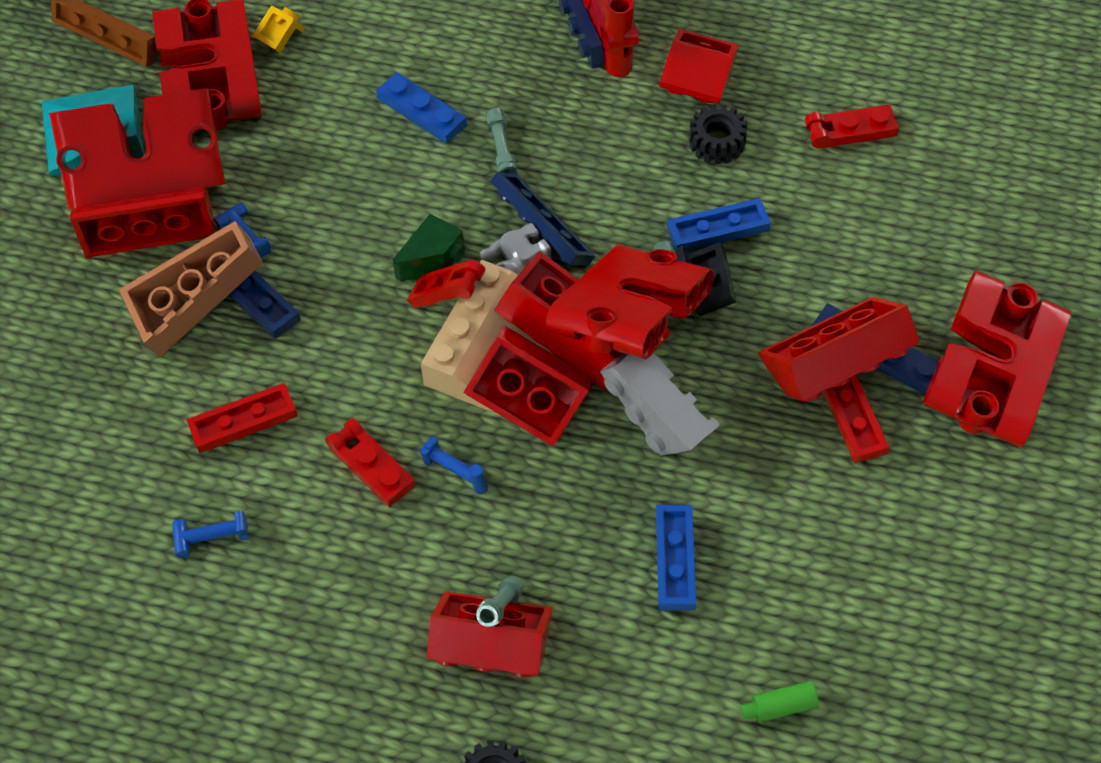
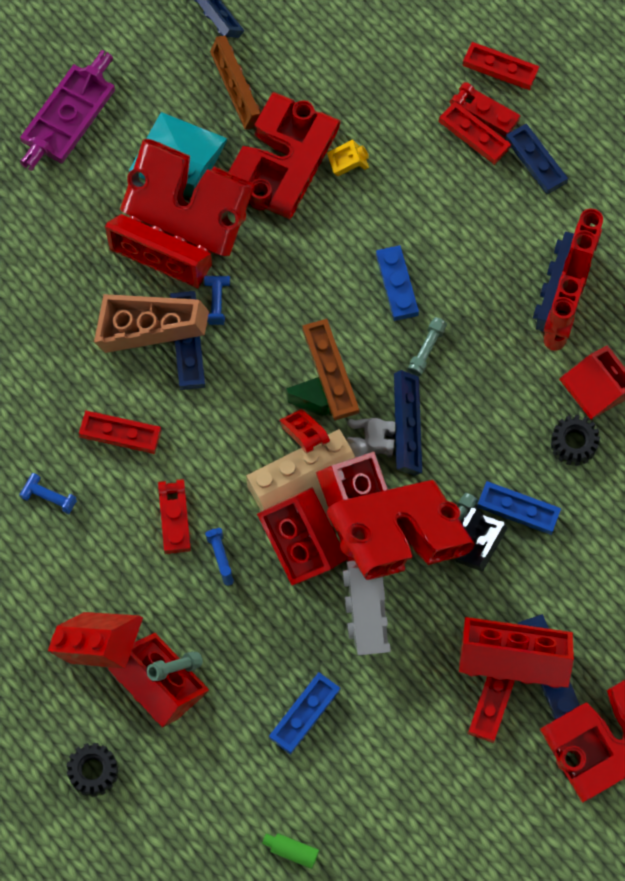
camera: 35 degrees right, 10 degrees up
(392, 633) = (96, 639): none -> red slope
(426, 210) = (330, 369): none -> dark orange plate

